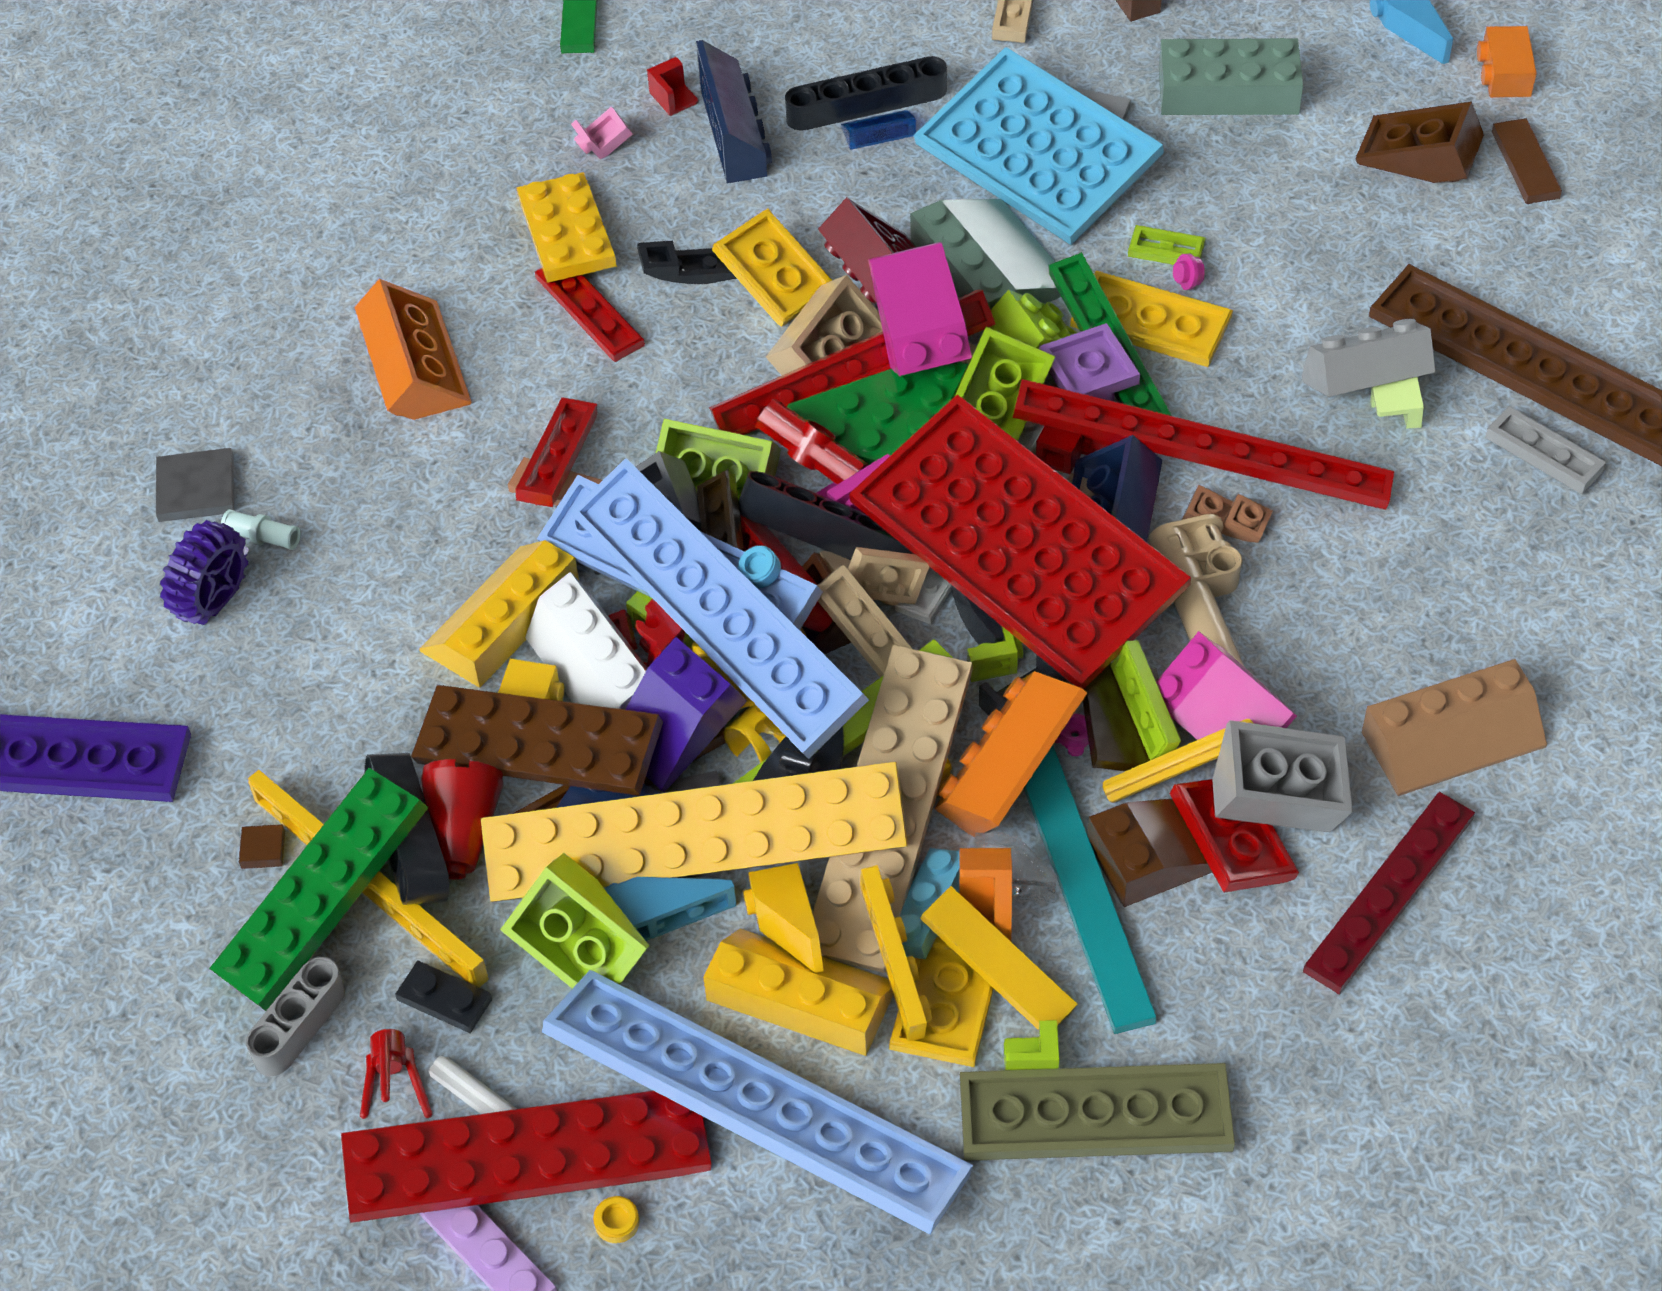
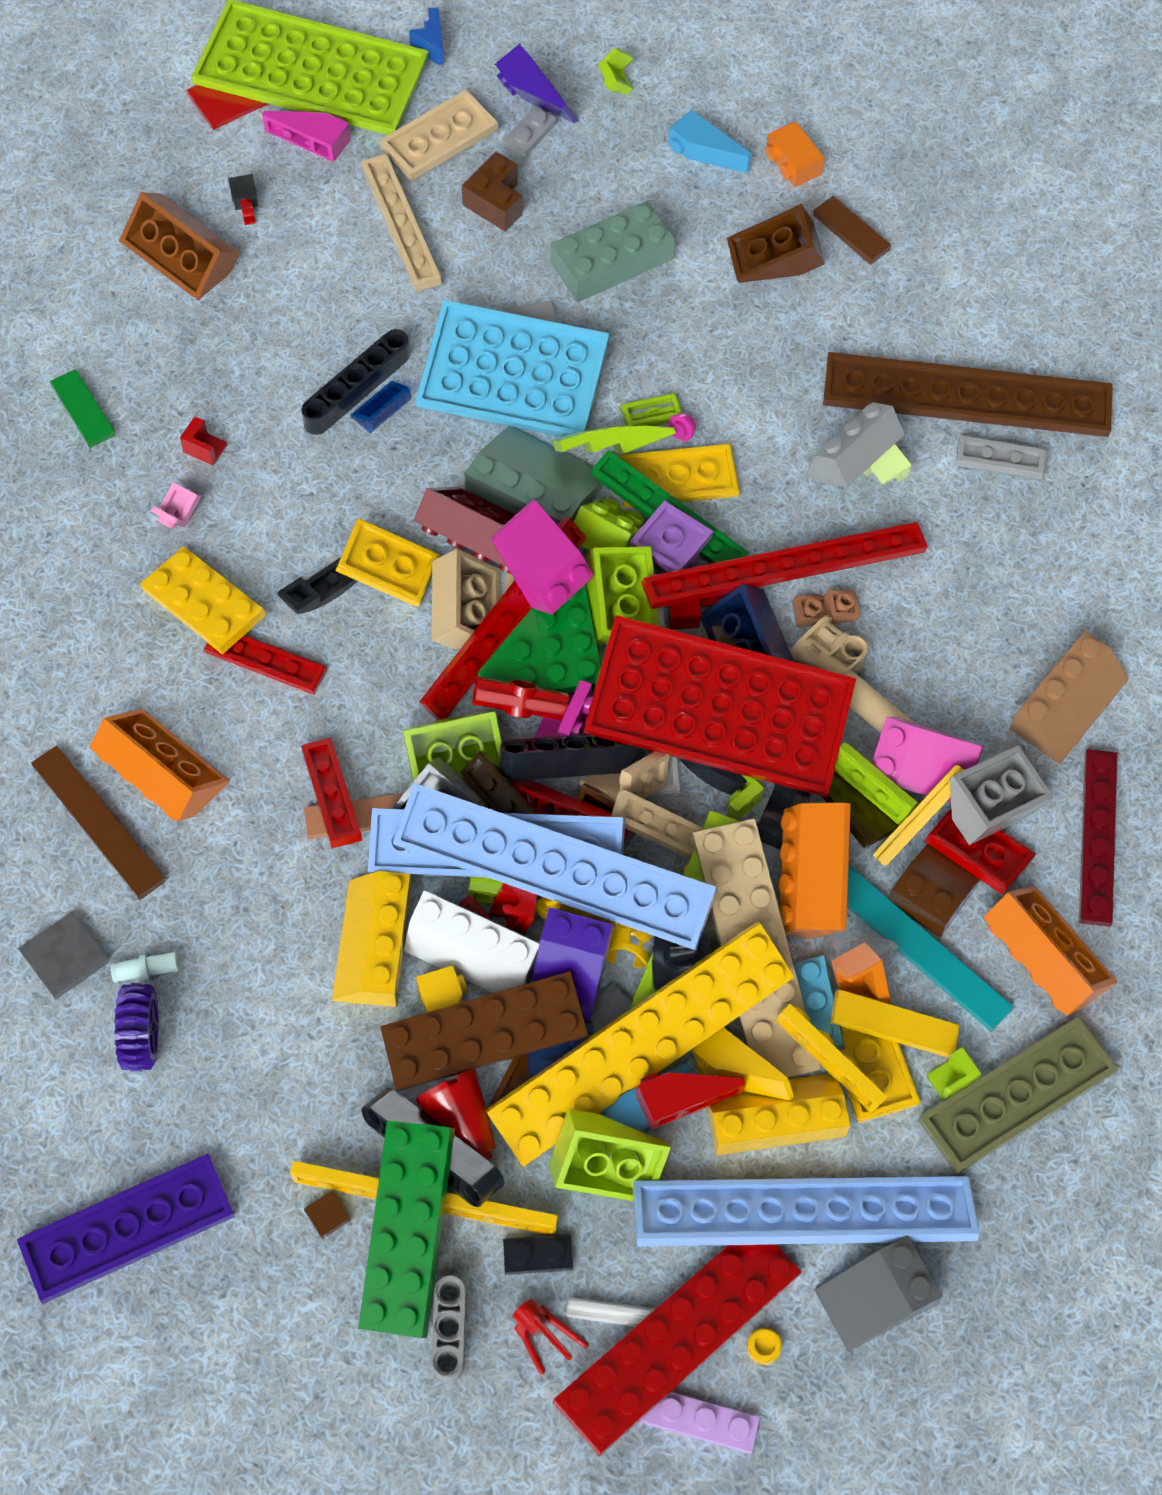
camera: 35 degrees left, 10 degrees up
(317, 383) = (98, 822): none -> reddish brown tile
(692, 902) = (680, 1094): none -> red slope
(732, 115) = (269, 448): dark blue slope -> none
(760, 566) = (570, 821): medium azure tile -> none
(781, 1232) = (879, 1293): none -> dark grey slope
(1114, 253) = (623, 438): none -> lime slope
(1242, 977) = (1049, 949): none -> orange slope

